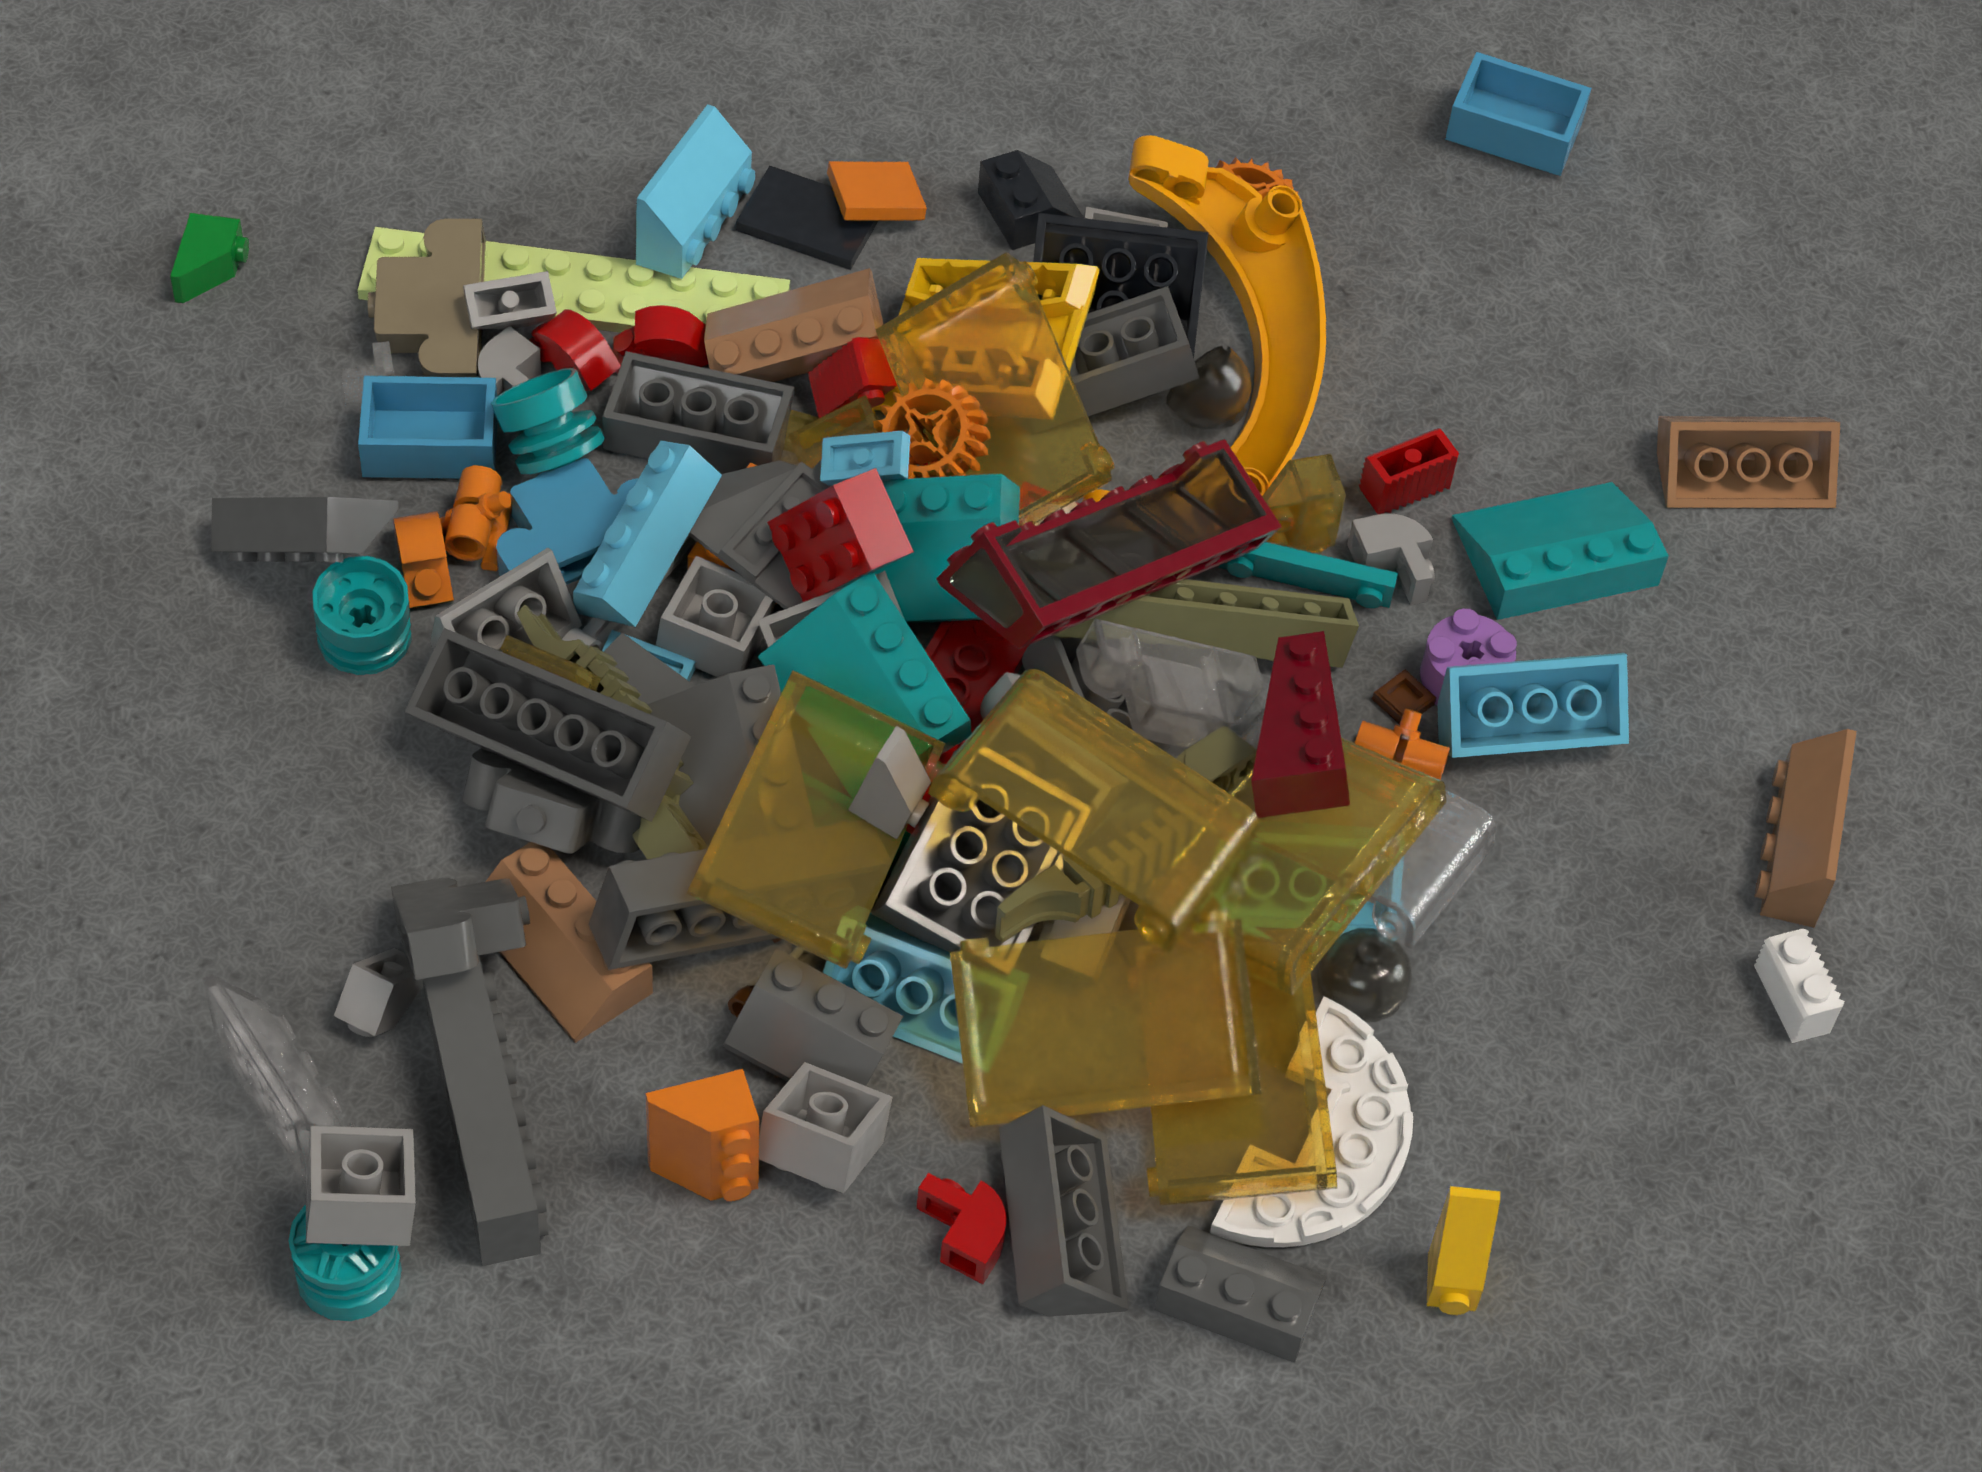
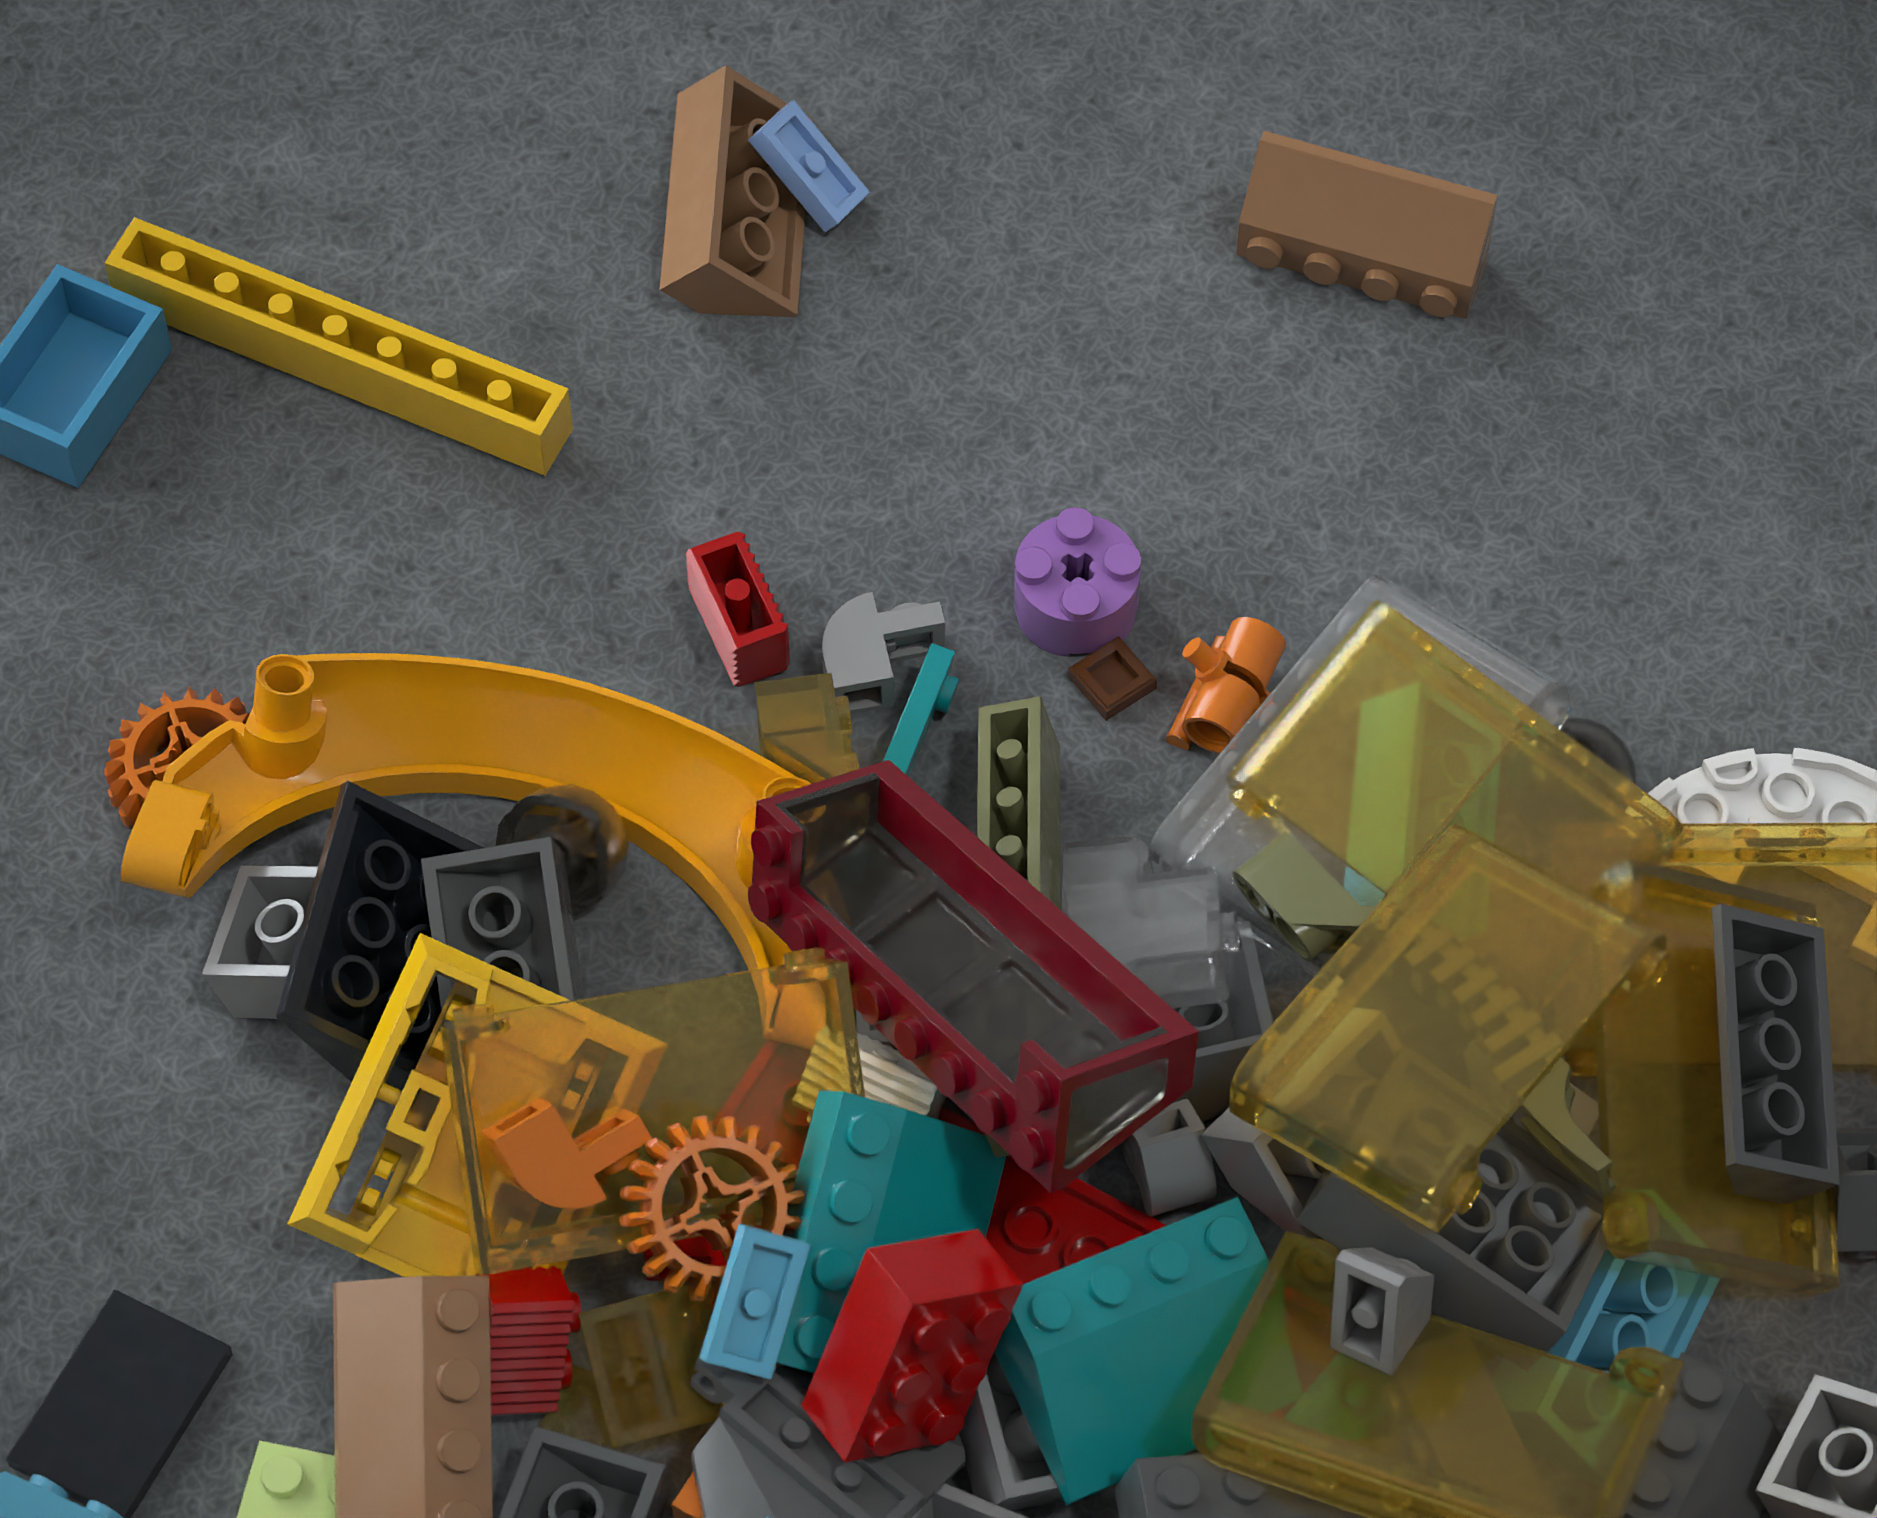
camera: 80 degrees left, 5 degrees up
(876, 191) = (93, 1293): orange tile -> none
(950, 348) = (554, 1167): none -> orange brick
(1017, 190) = (137, 1075): black slope -> none
(1124, 1040) = (1775, 1055): none -> dark grey slope
(1300, 740) = (1292, 756): dark red wedge -> none
(1534, 705) = (1183, 511): medium azure slope -> none
(1561, 549) = (866, 449): teal slope -> none
(1571, 250) = (344, 347): none -> yellow brick
(1781, 492) = (809, 166): none -> light blue plate
(1798, 985) = (1598, 285): white brick -> none

